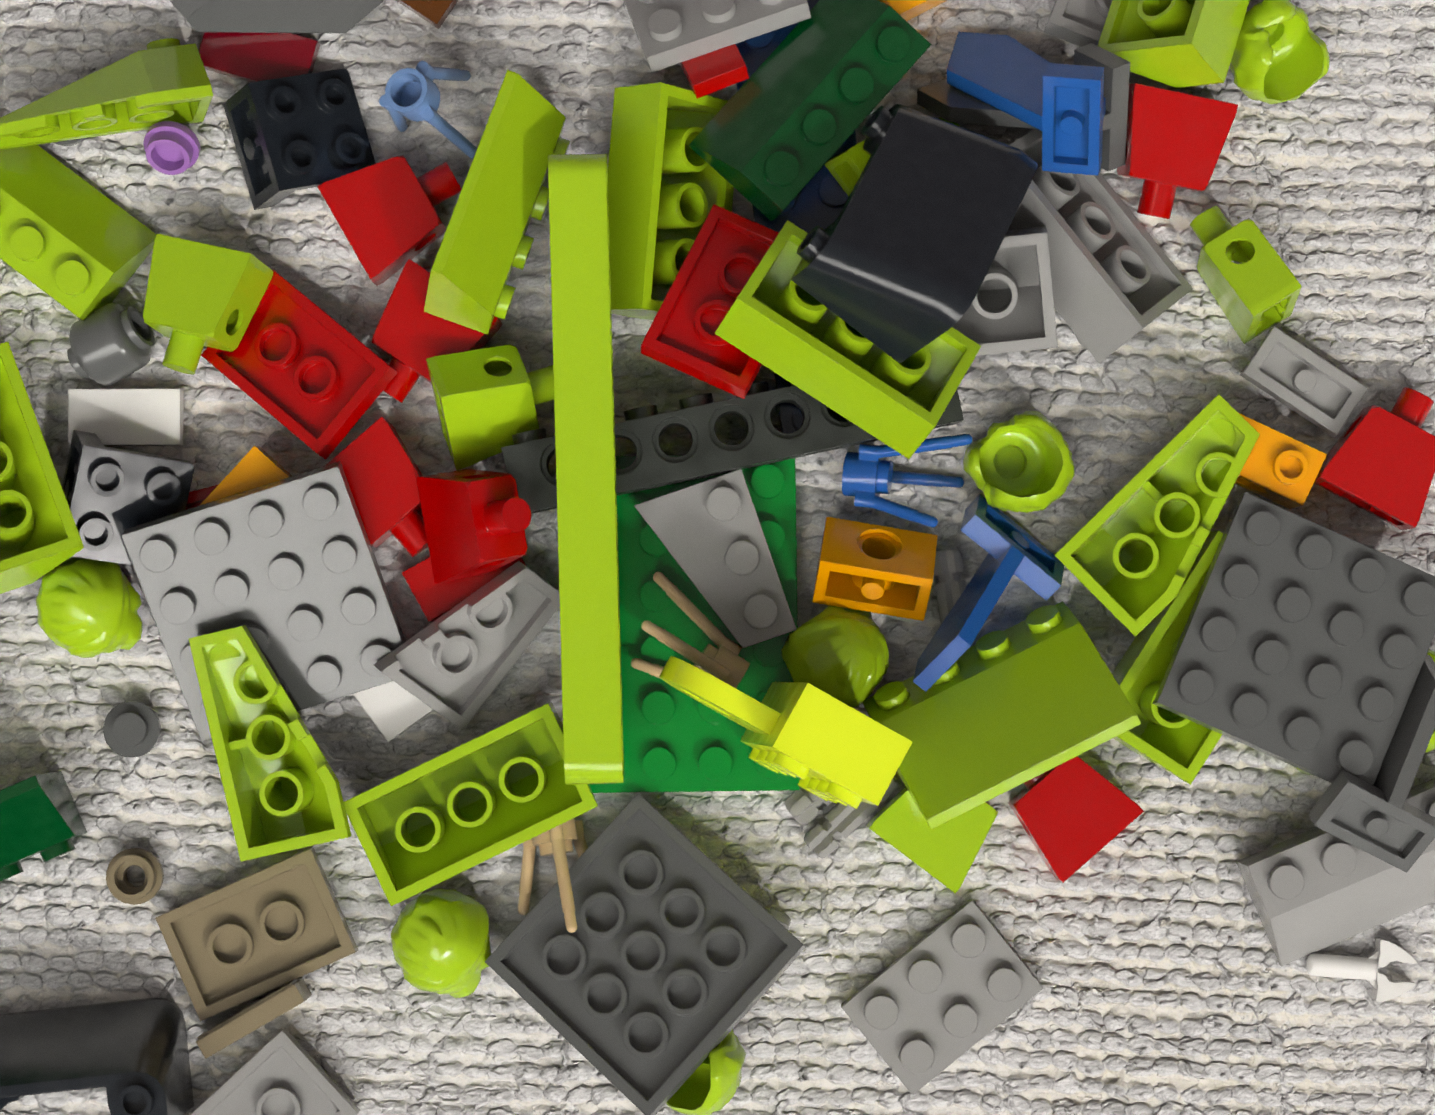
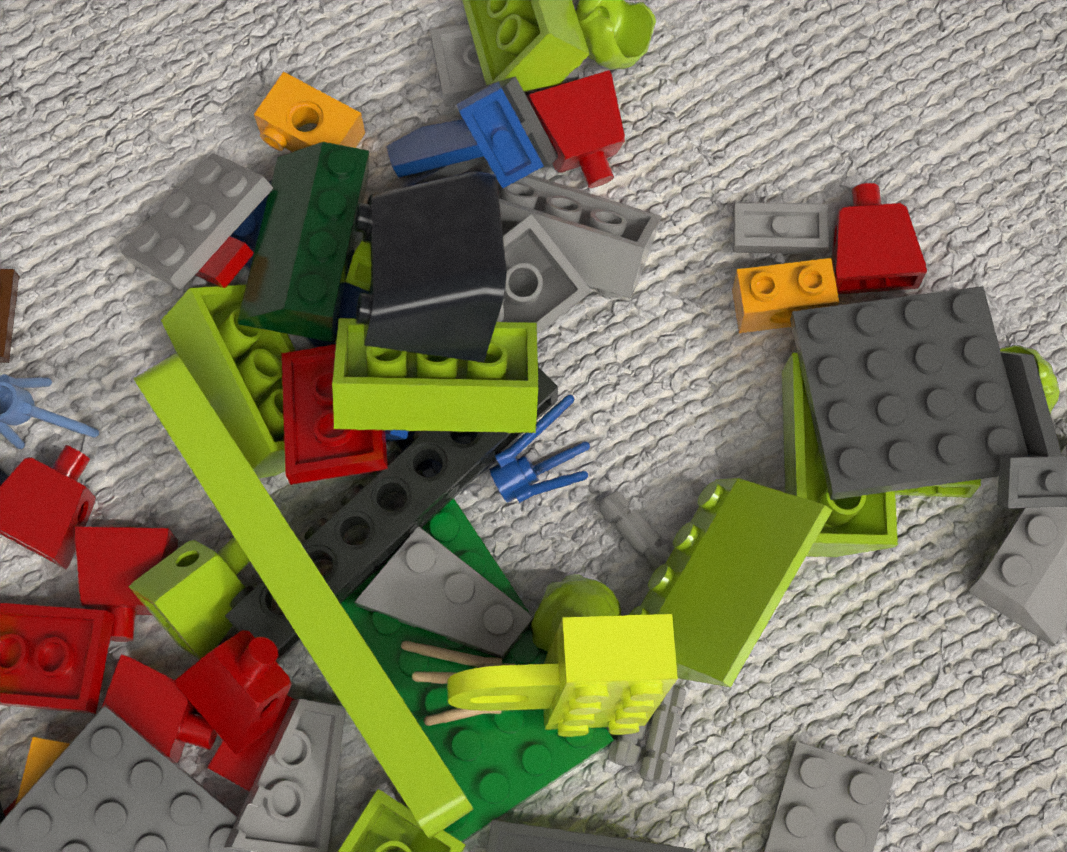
camera: 30 degrees left, 15 degrees down
(496, 208) = (118, 450): lime slope -> none
(875, 568) = (564, 538): light orange brick -> none
(941, 851) = (739, 713): lime torso -> none
(1009, 554) = (654, 469): blue piece -> none
(1021, 463) = (620, 399): lime hair -> none
(1072, 815) = (824, 627): red torso -> none
(1155, 526) = (745, 383): lime wedge -> none
(1250, 293) = (691, 179): lime torso -> none

